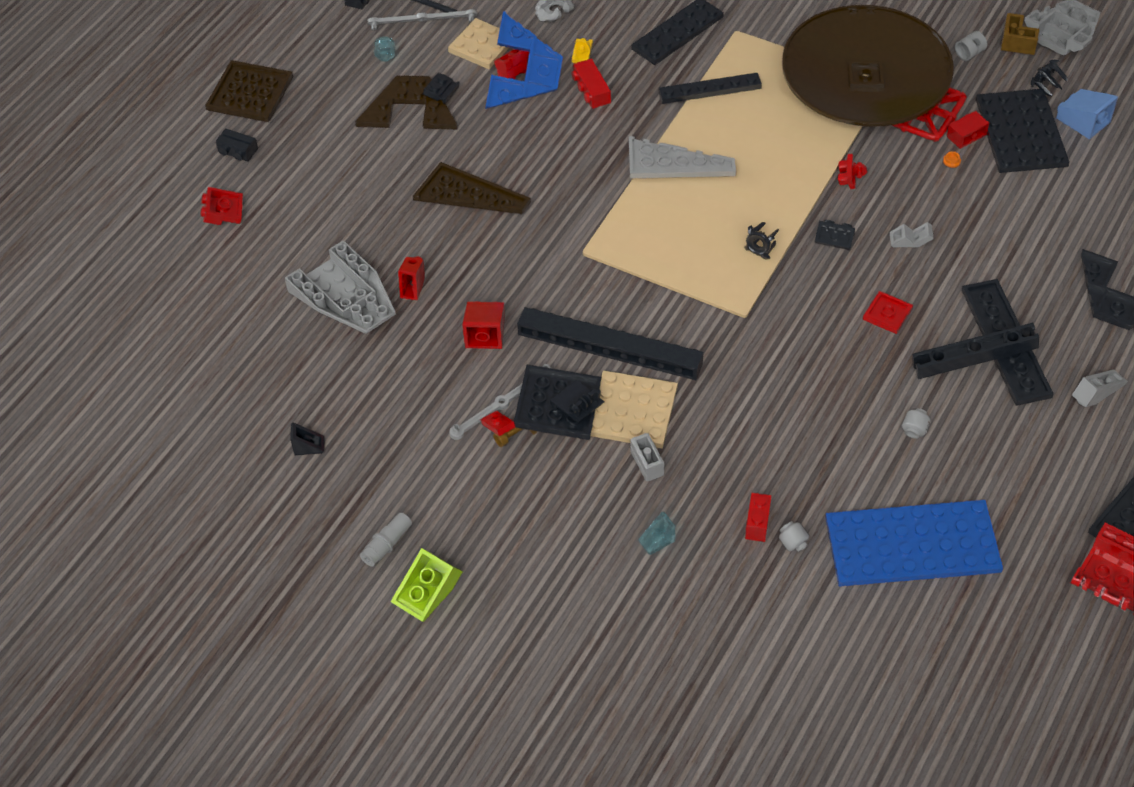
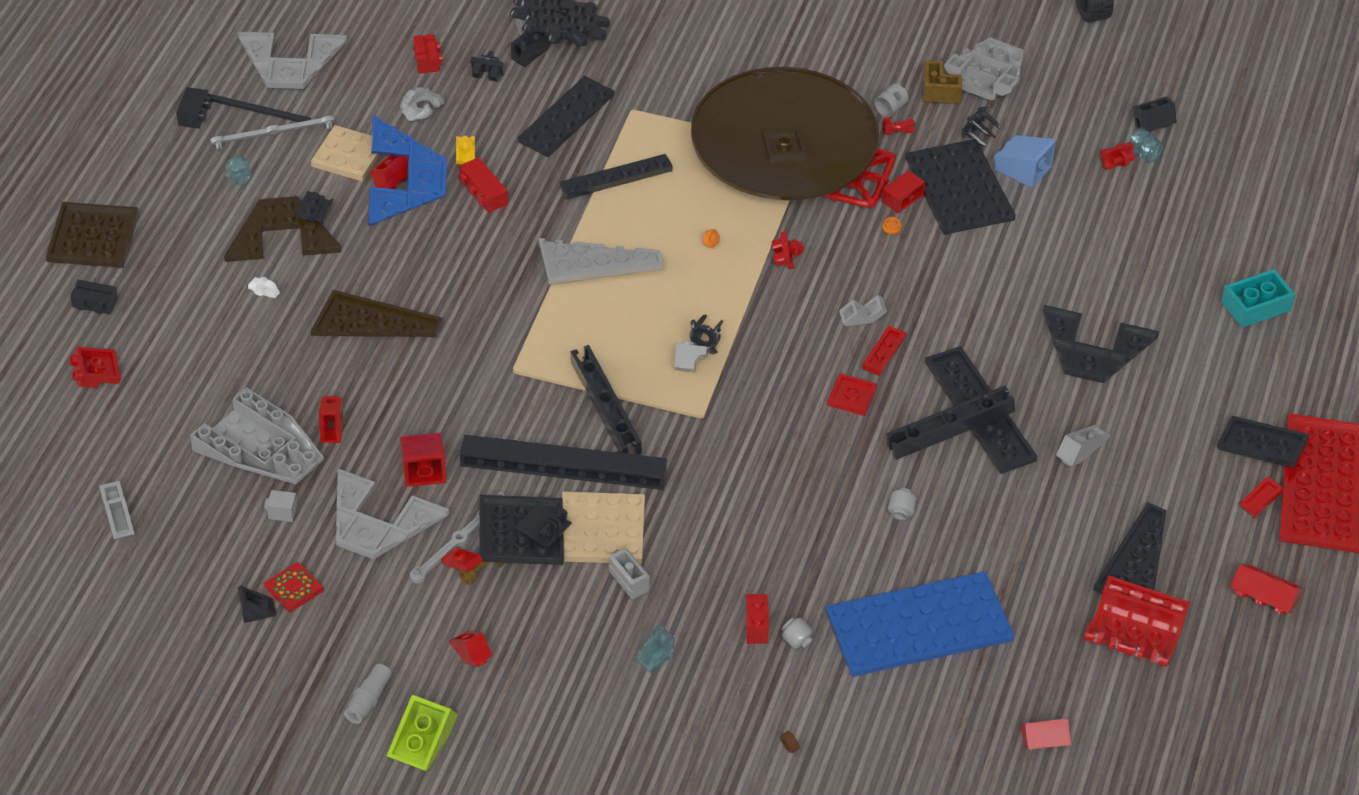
camera: 15 degrees left, 5 degrees down
(207, 337) = (116, 510): none -> light grey slope
(344, 428) = (293, 587): none -> red tile
(350, 351) = (281, 505): none -> light grey brick
(382, 152) = (263, 286): none -> white piece
(423, 389) = (370, 535): none -> light grey wing
(489, 508) = (472, 648): none -> red slope
(661, 301) = (605, 401): none -> black piece
(741, 258) = (688, 355): none -> light grey brick
(766, 644) = (789, 742): none -> reddish brown tile
(783, 152) = (711, 238): none -> orange plate
(835, 234) = (782, 319): black bracket -> none
(924, 274) = (884, 350): none -> red plate
(981, 70) = (904, 126): none -> red piece
(1018, 673) = (1046, 734): none -> brick

